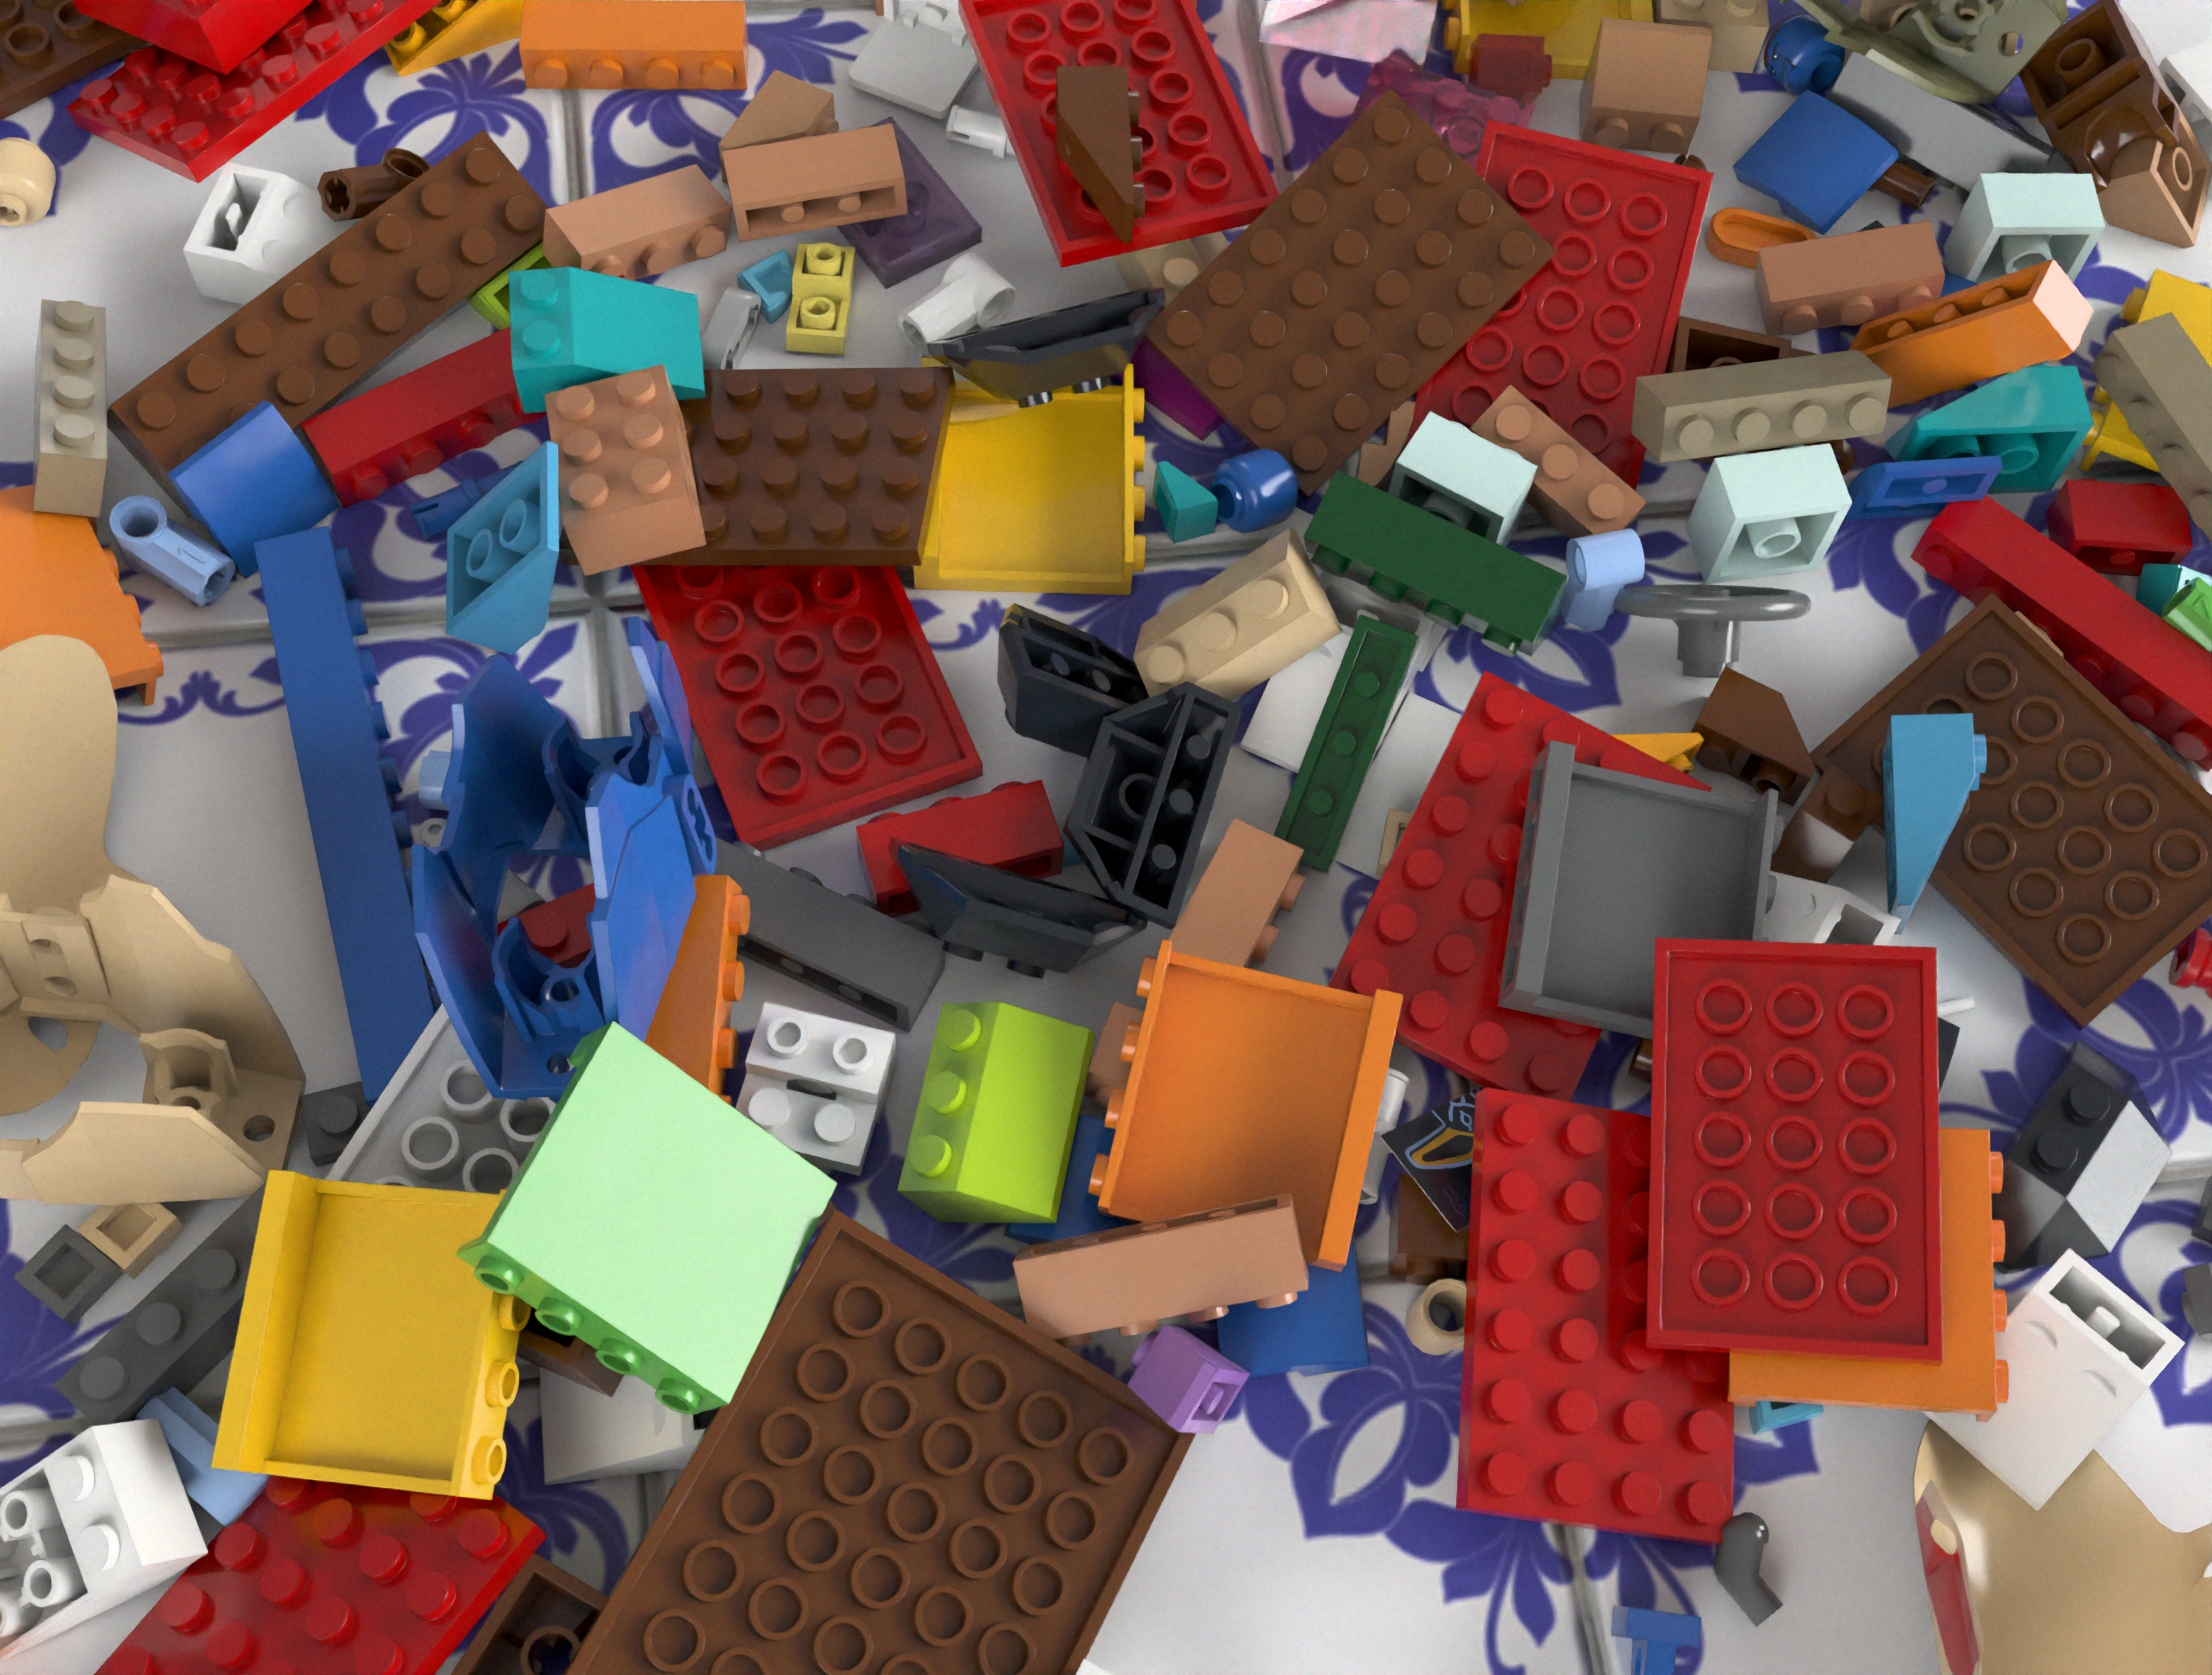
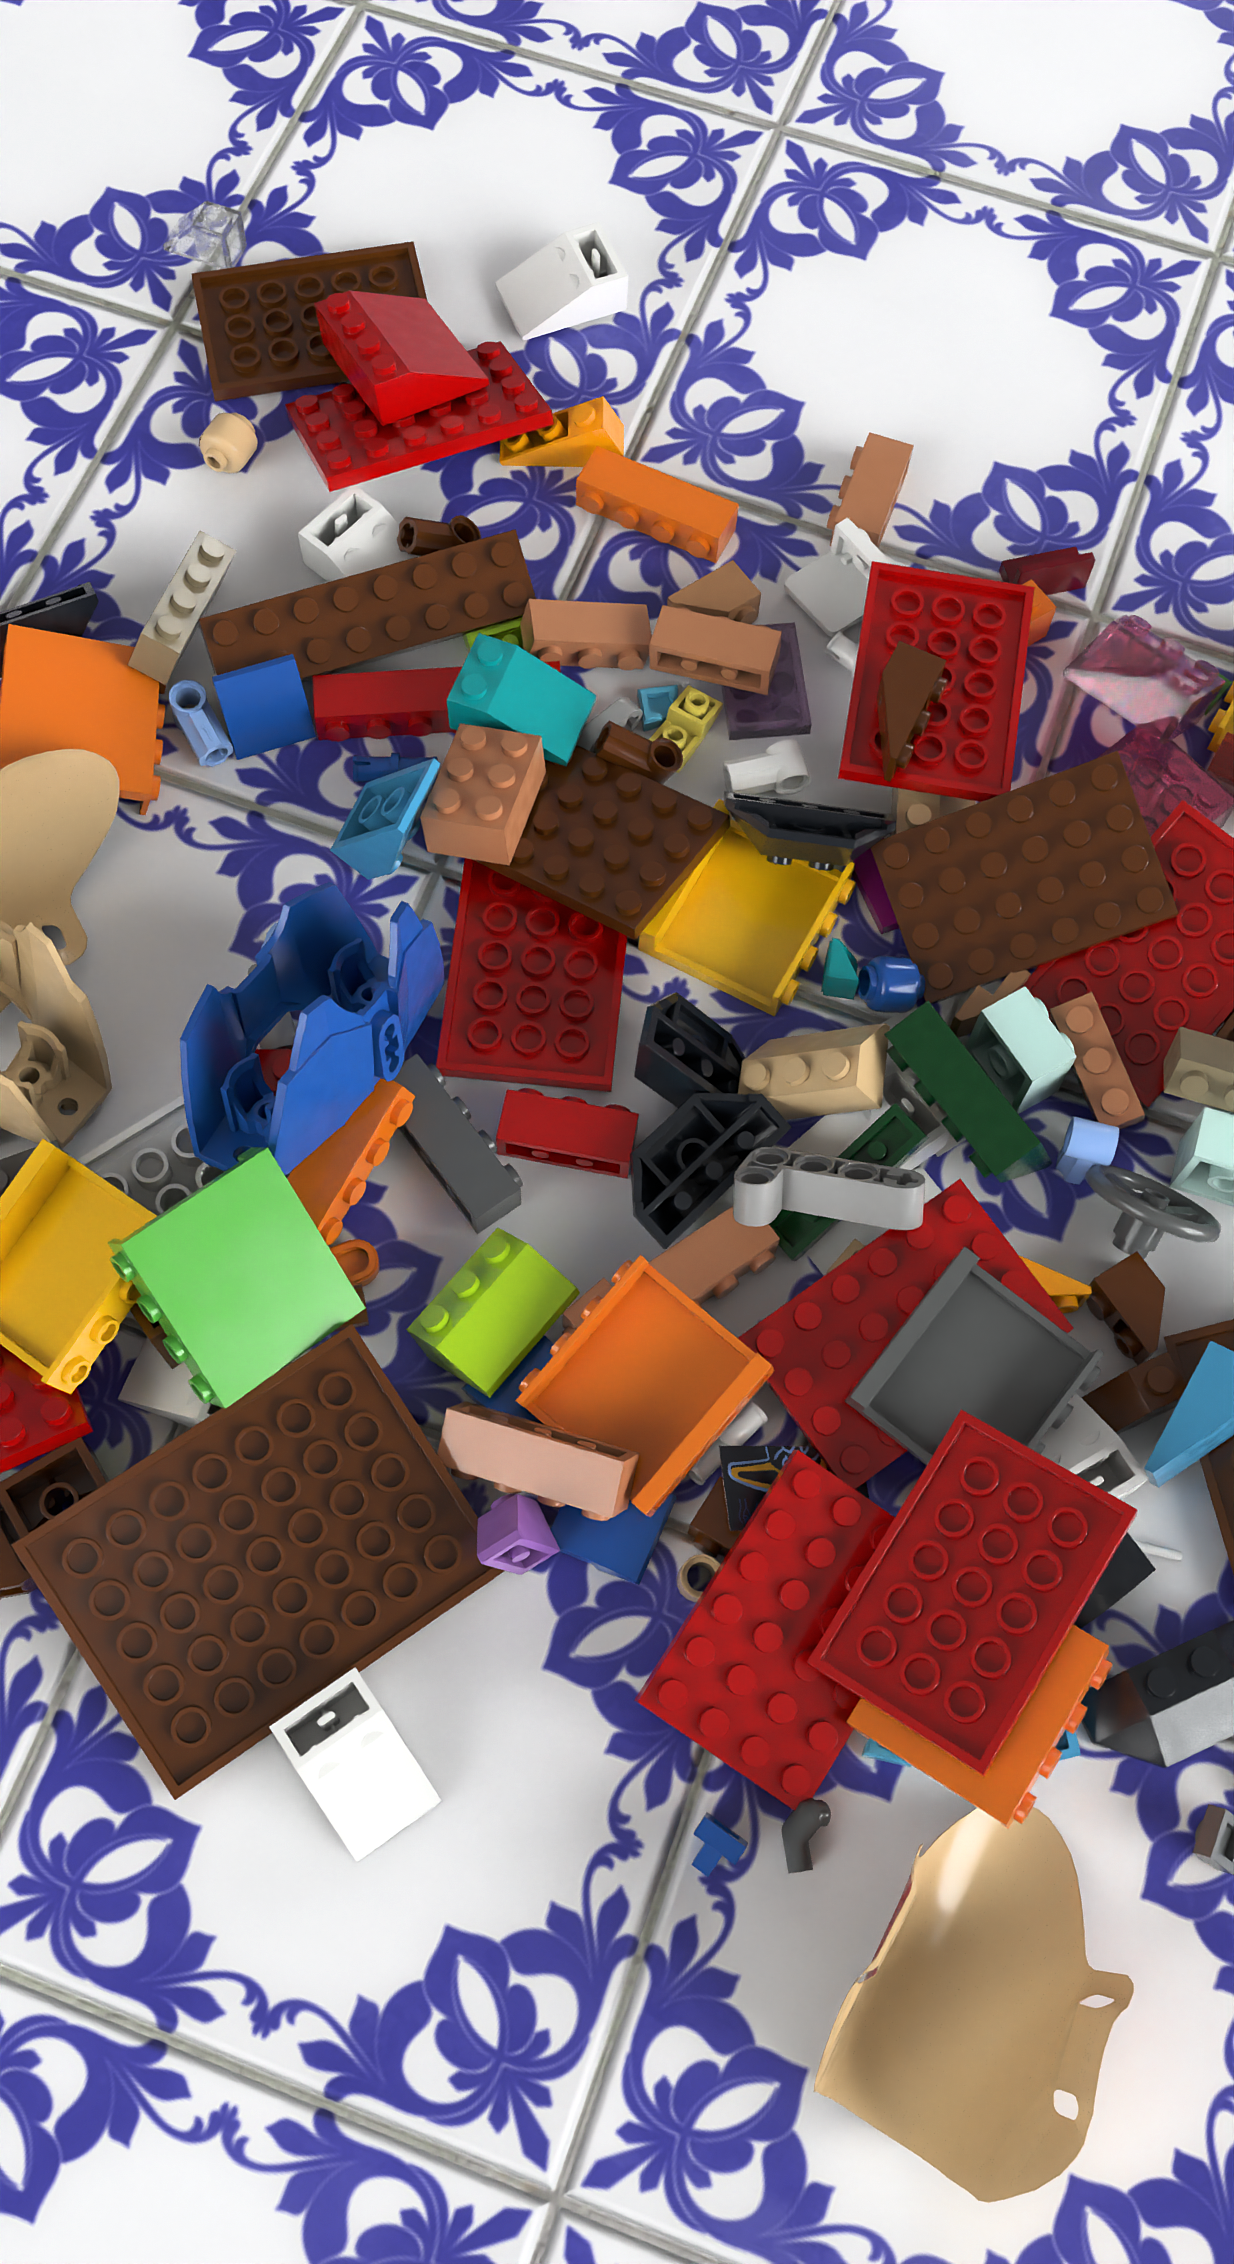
camera: 30 degrees right, 5 degrees up
(332, 1120) = (114, 1118): dark grey plate -> none
(349, 796) = (227, 905): blue brick -> none
(775, 345) = (625, 748): none -> reddish brown piece
(818, 1084) = (410, 1226): white brick -> none
(1009, 913) = (569, 1188): black wedge -> none
(1338, 754) = (826, 1187): none -> light grey beam
(2075, 1367) = (1079, 1828): white slope -> none

